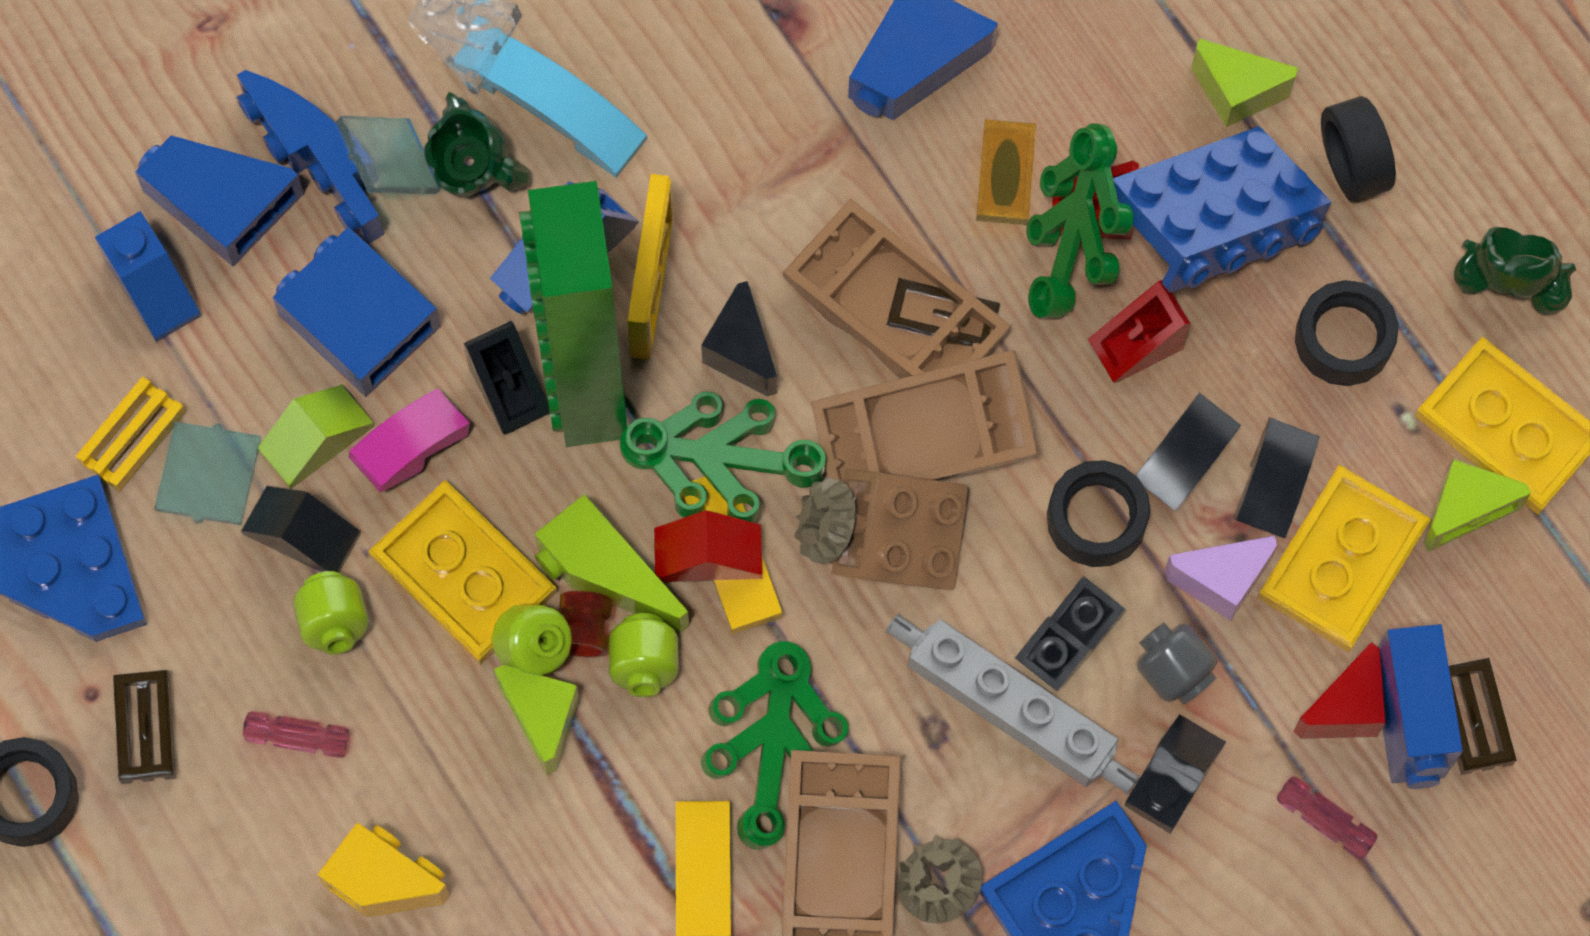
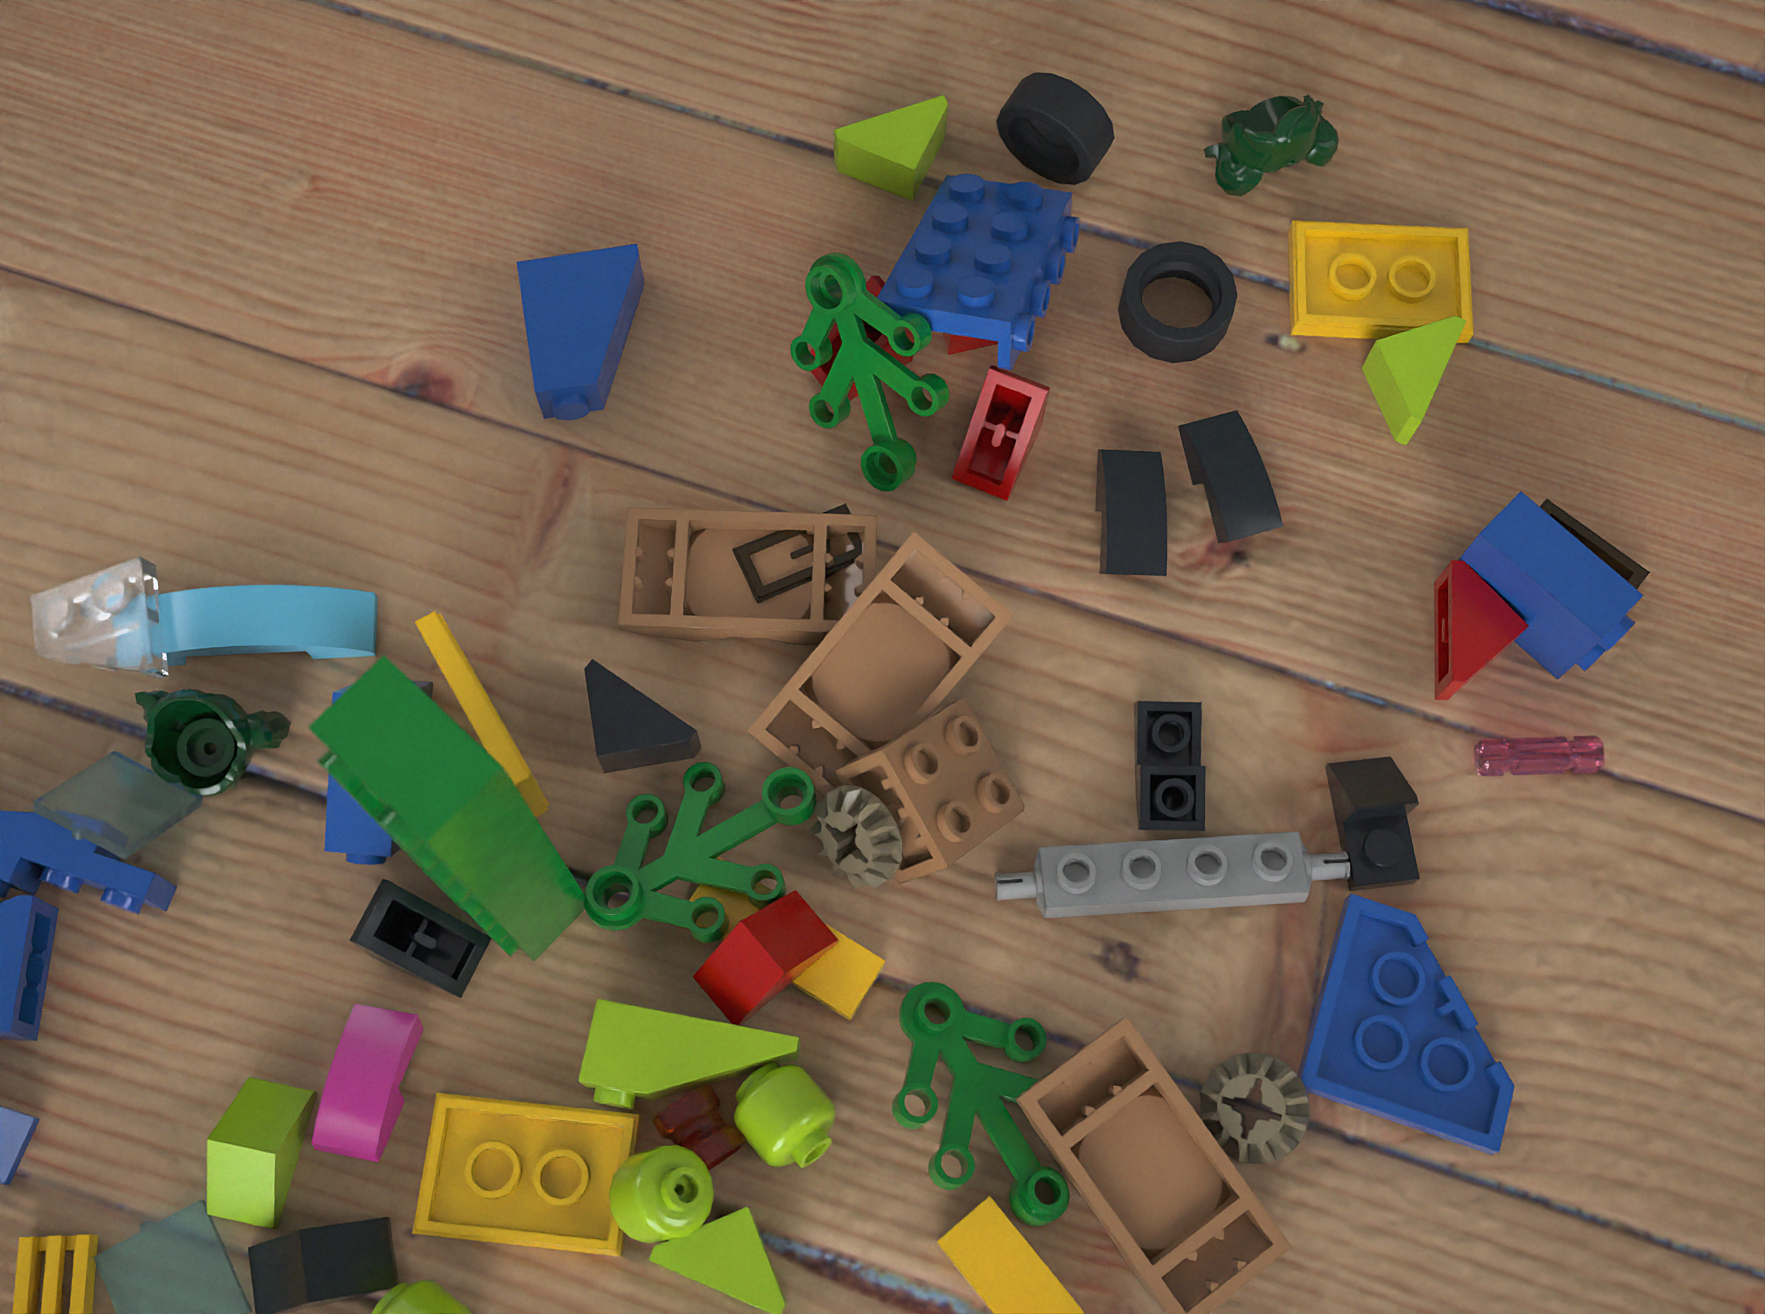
camera: 40 degrees left, 0 degrees up
(356, 310) = (204, 989): blue brick -> none
(1006, 172) = (750, 380): clear yellow tile -> none
(1110, 476) = (1120, 590): black tyre -> none
(1176, 662) = (1291, 717): dark grey head -> none
(1221, 574) = (1264, 603): lavender slope -> none
(1344, 558) = (1345, 506): yellow tile -> none

